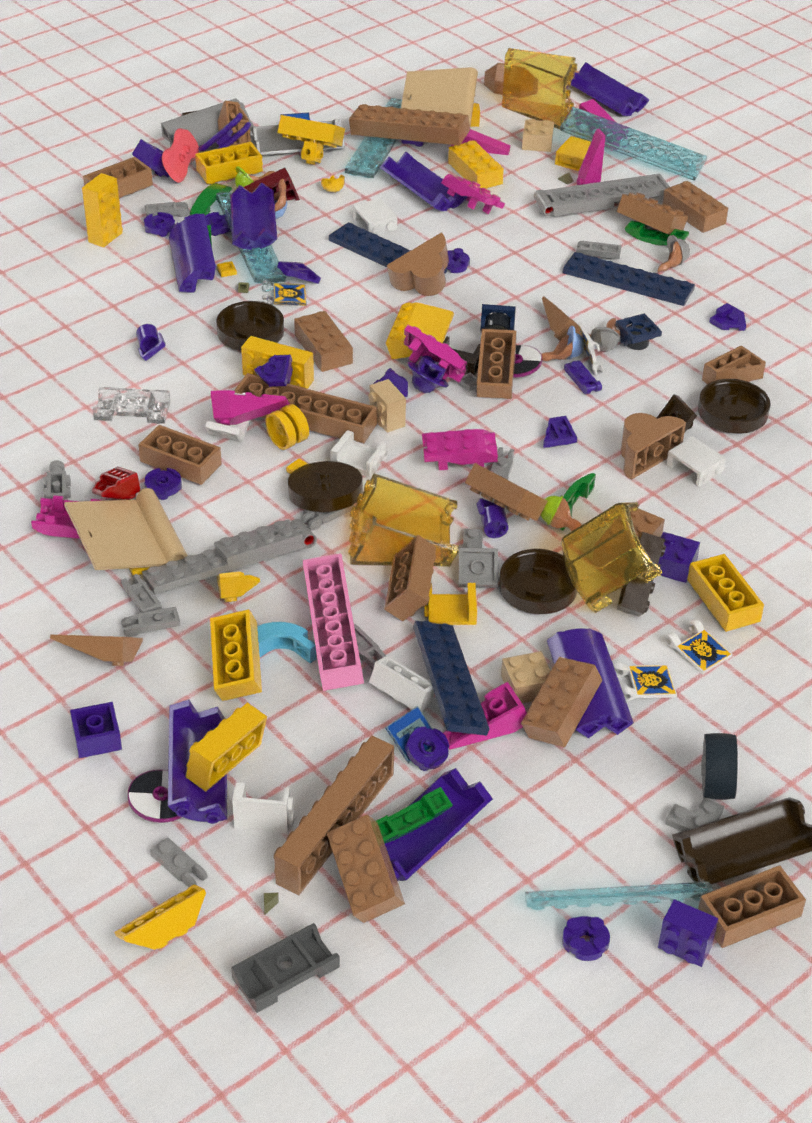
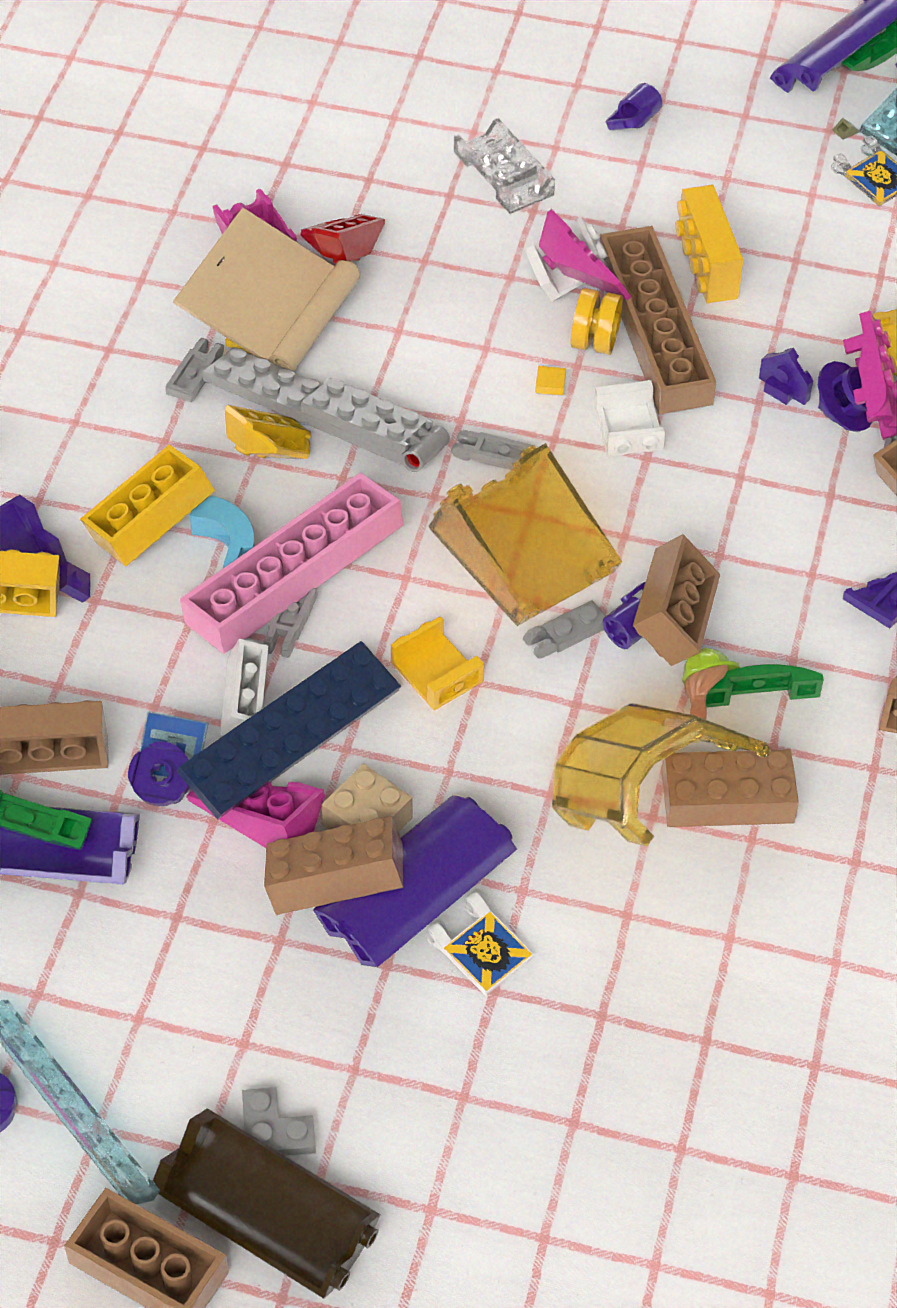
camera: 55 degrees right, 10 degrees up
(57, 481) = (302, 189): light grey brick -> none
(103, 647) = (80, 388): medium nougat wedge -> none
(150, 621) = (161, 404): light grey hinge -> none
(169, 485) = (390, 284): dark purple plate -> none
(185, 454) = (455, 258): medium nougat brick -> none
(226, 269) = (863, 92): yellow tile -> none
(249, 319) = (766, 177): dark brown piece -> none
(276, 371) = (675, 248): dark purple plate -> none
(324, 339) = (811, 261): medium nougat brick -> none
(325, 486) = (529, 412): dark brown brick -> none
(389, 404) = (738, 391): tan brick -> none
(410, 578) = (432, 592): medium nougat brick -> none
(460, 447) = (734, 508): dark pink piece -> none
(478, 567) = (523, 653): light grey plate -> none
(504, 465) = (756, 575): light grey hinge -> none
(536, 581) = (543, 717): dark brown brick -> none
(635, 594) = (668, 816): dark brown wedge -> none
(678, 556) = (747, 855): dark purple brick -> none
(687, 933) = (41, 1205): dark purple brick -> none
(701, 649) = (598, 981): flag -> none
(719, 766) = (353, 1098): black wheel -> none
(725, 592) = (722, 948): yellow brick -> none

